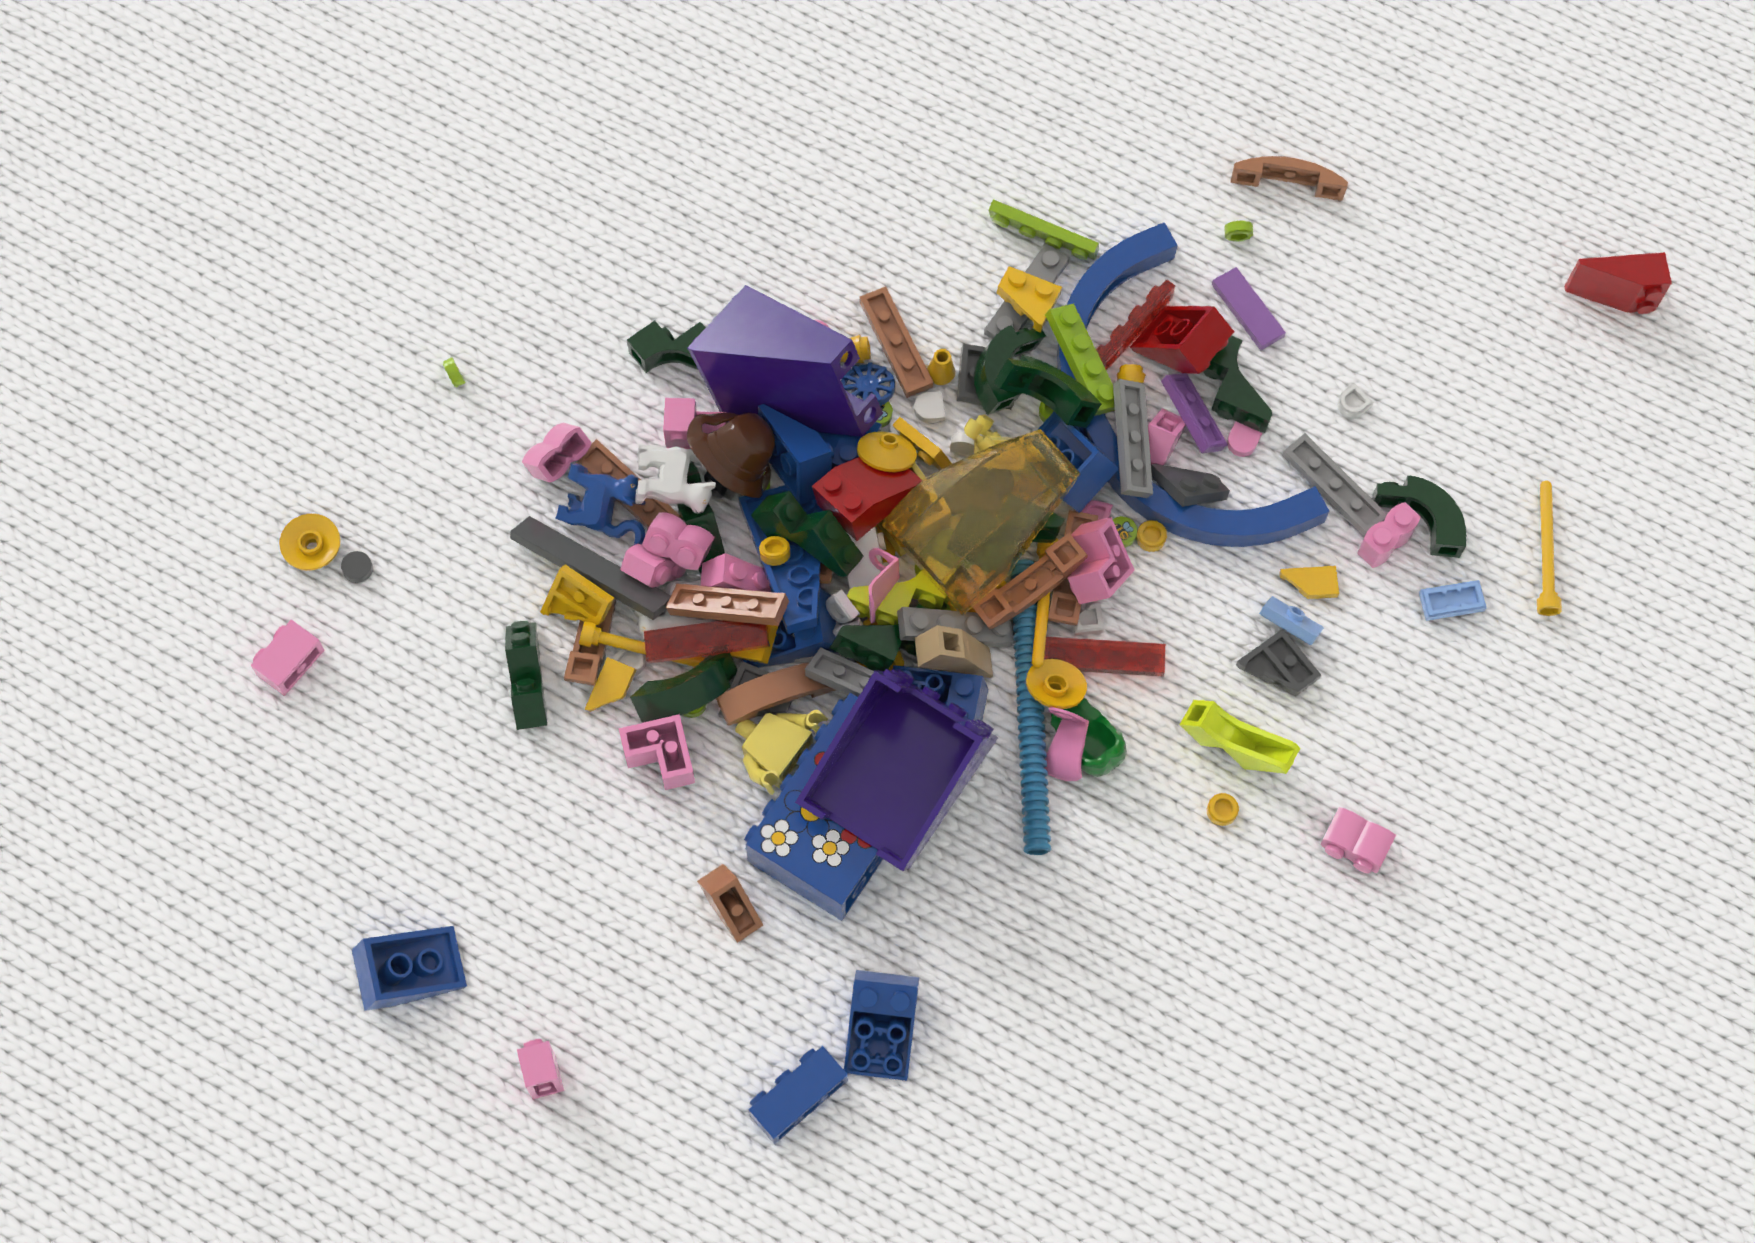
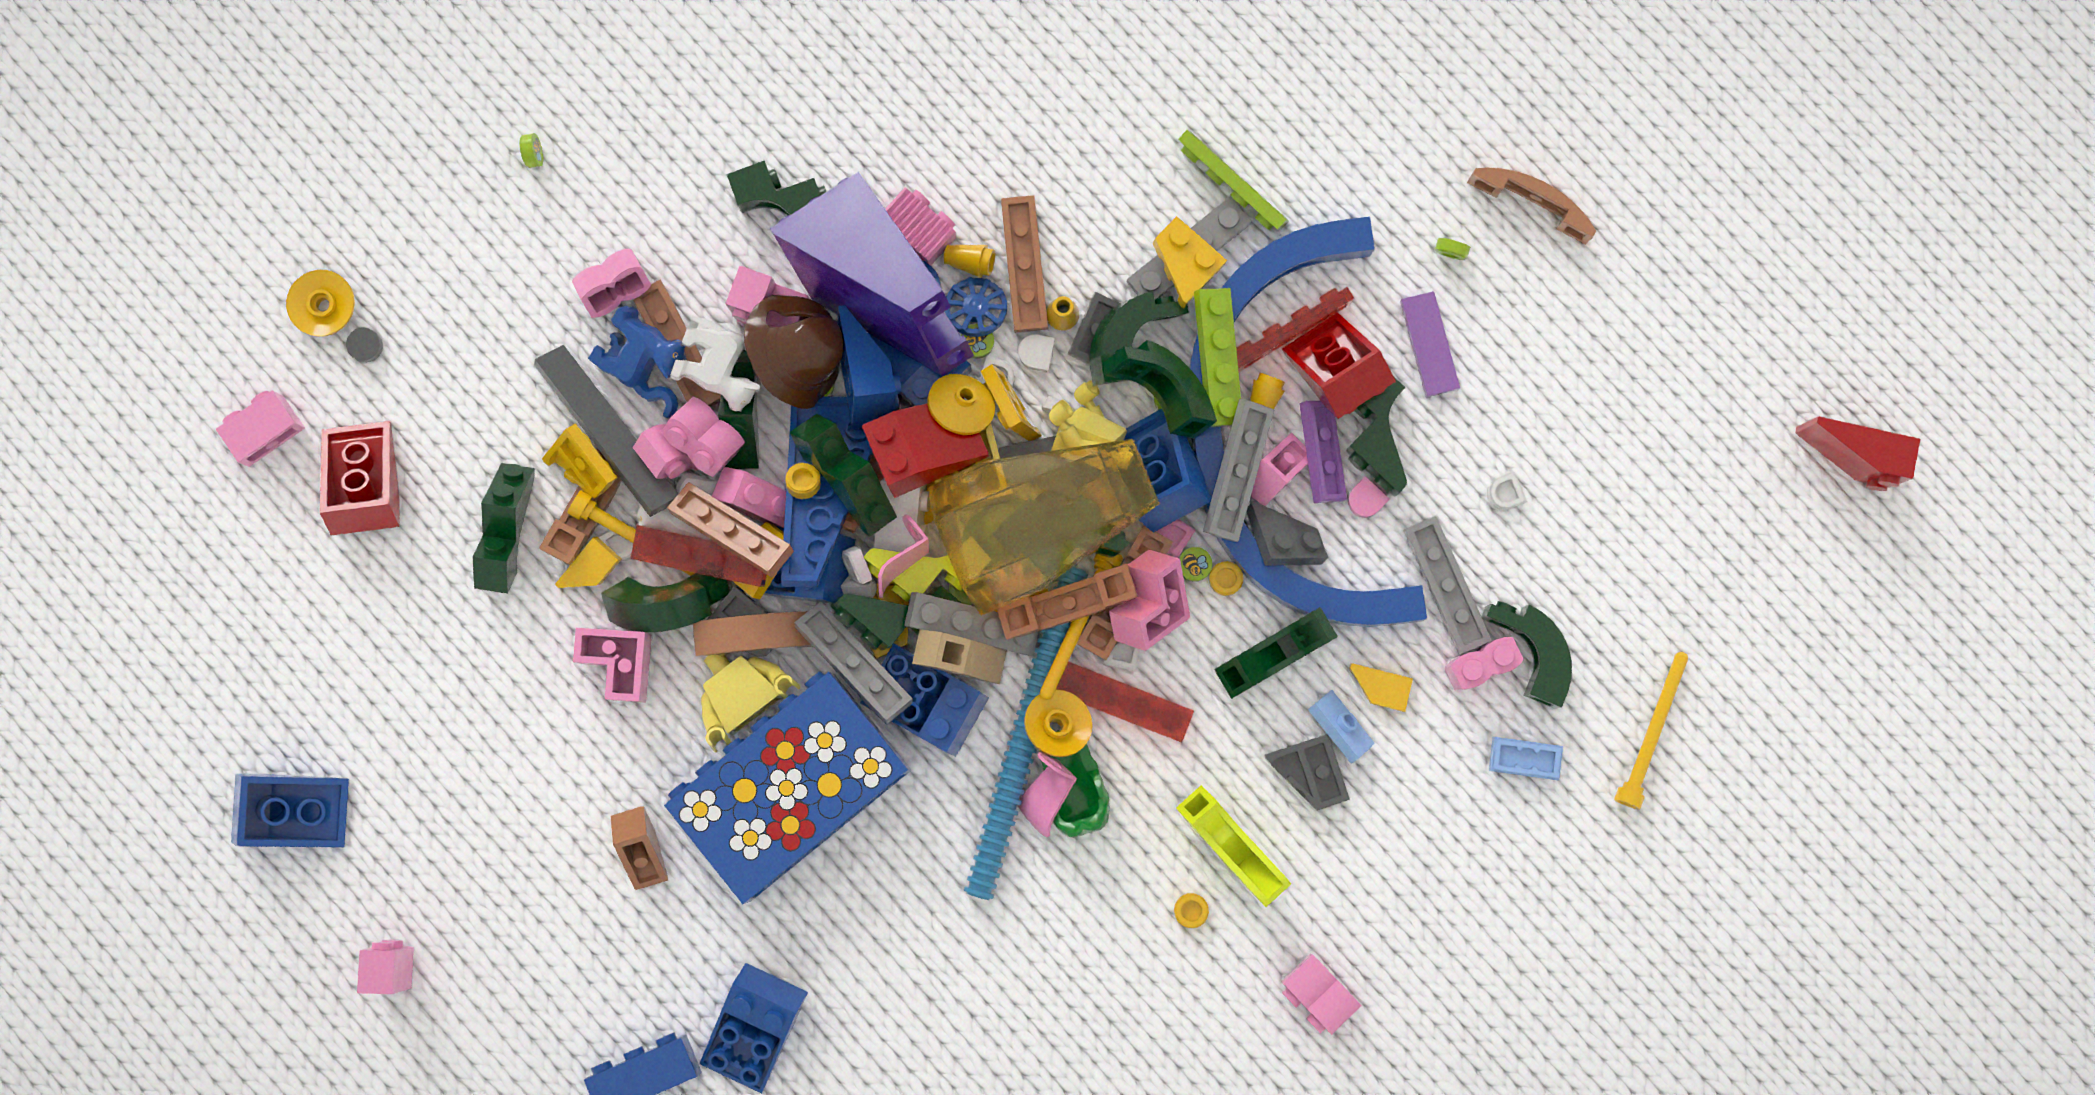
camera: 20 degrees right, 15 degrees up
(387, 673) = (359, 479): none -> red slope
(896, 766) = (849, 776): dark purple windscreen -> none
(1218, 575) = (1276, 652): none -> dark green arch

